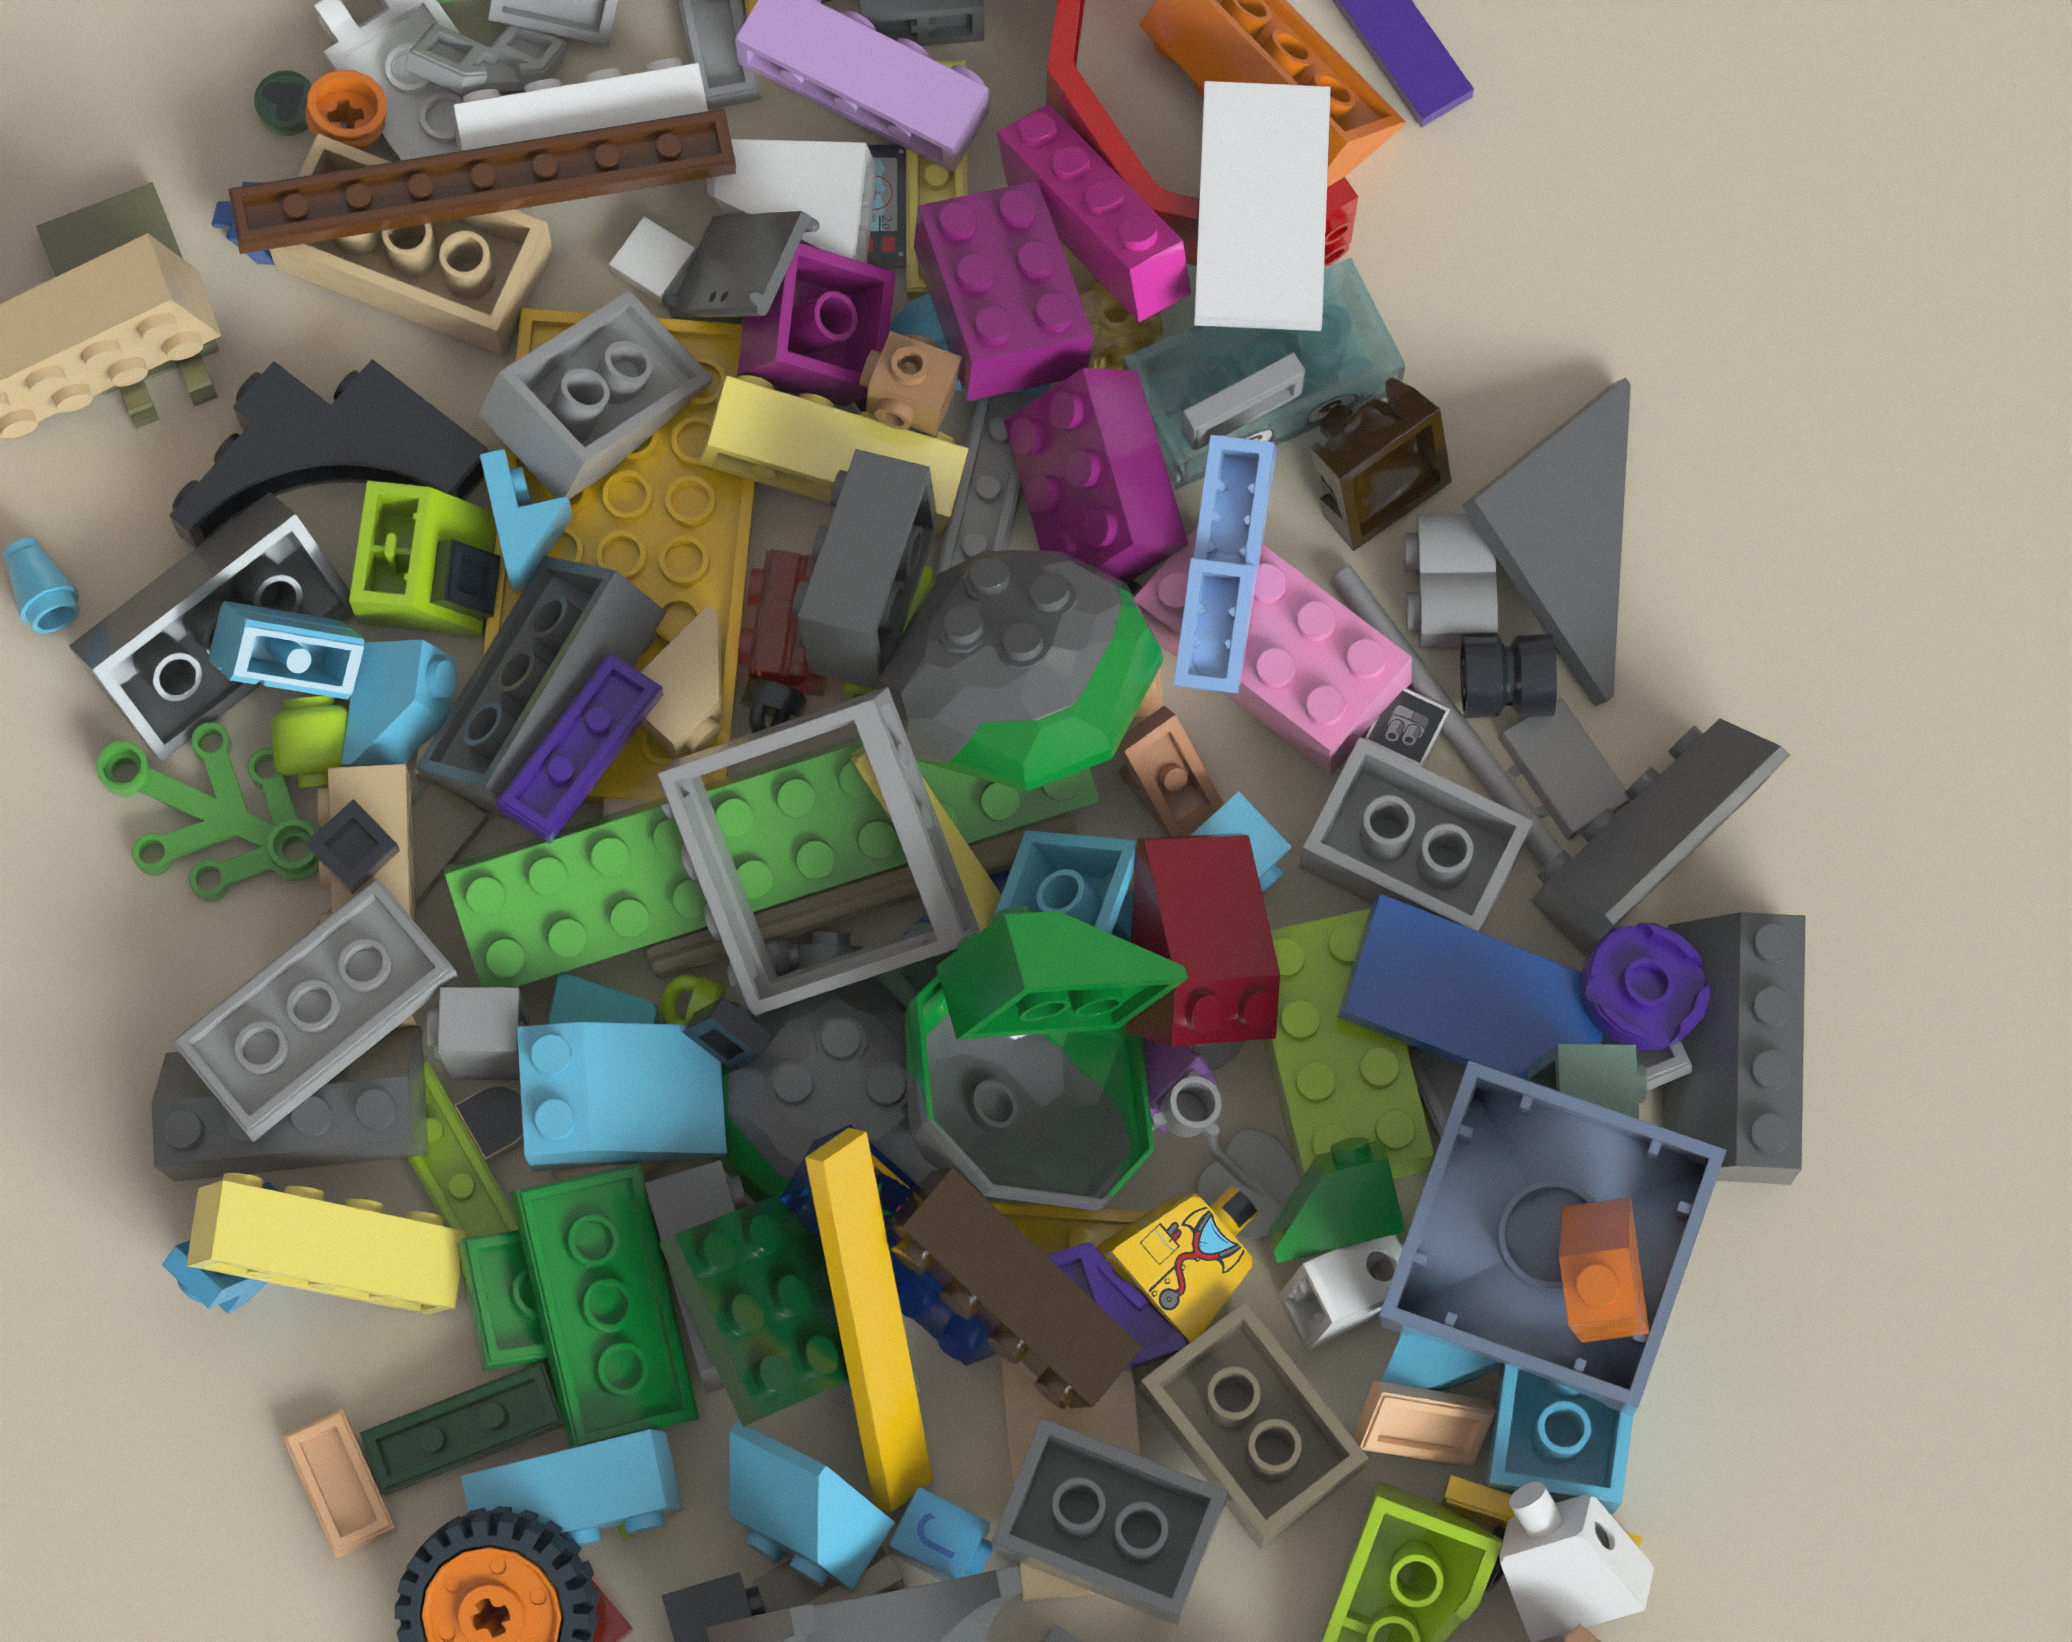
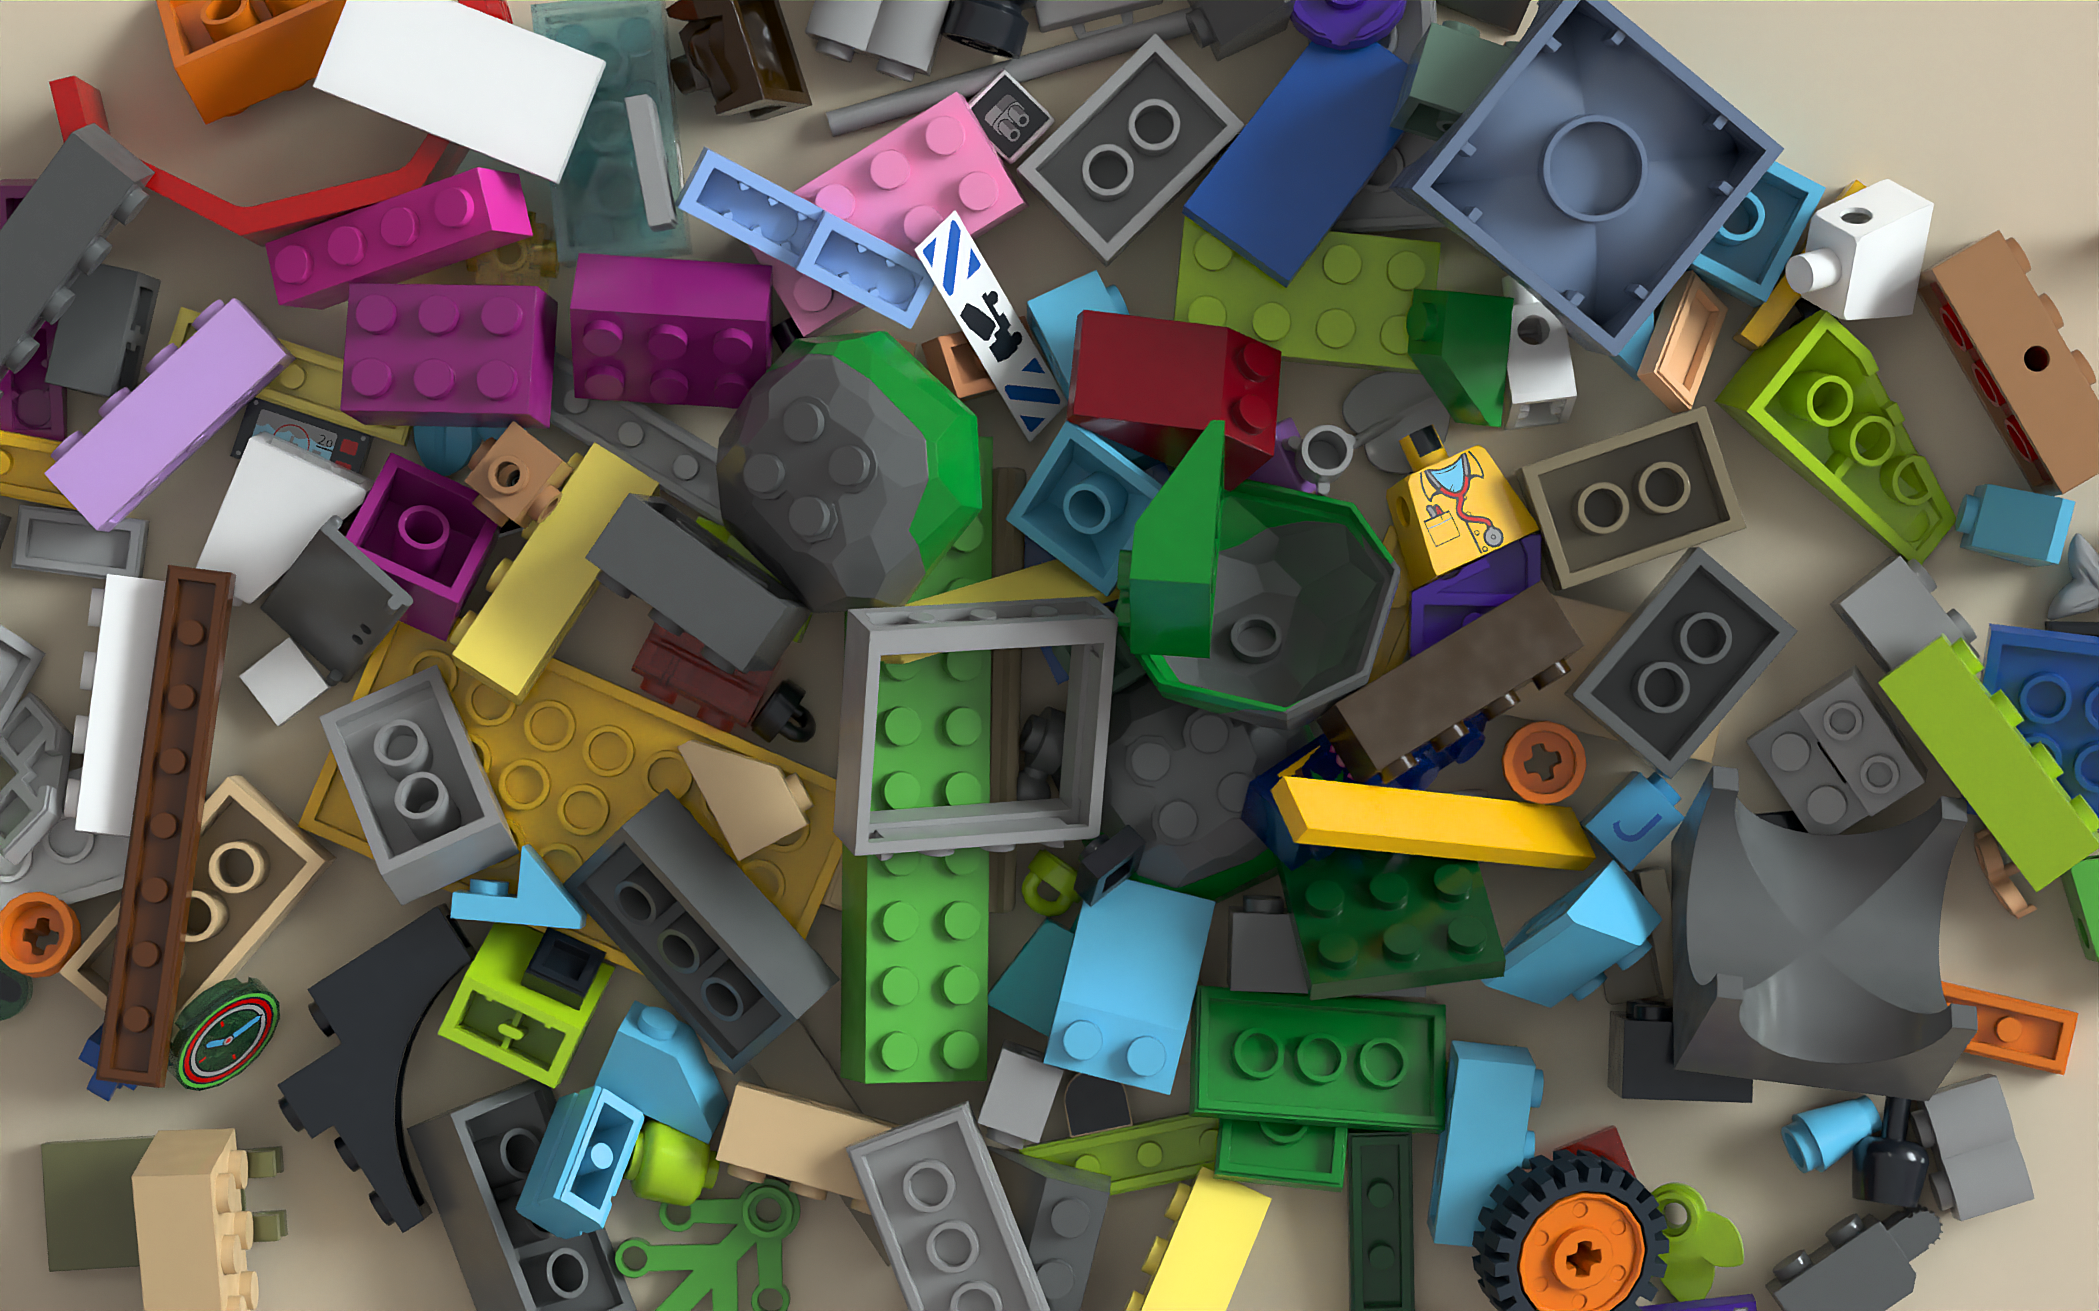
camera: 70 degrees left, 15 degrees up
(306, 298) = (222, 1033): none -> tile
(352, 846) = (807, 1161): black plate -> none
(579, 748) = (784, 916): dark purple tile -> none
(972, 1405) = (1564, 774): none -> orange piece
(1211, 754) = (991, 325): none -> white sticker
(1602, 1271) = (1661, 138): orange slope -> none

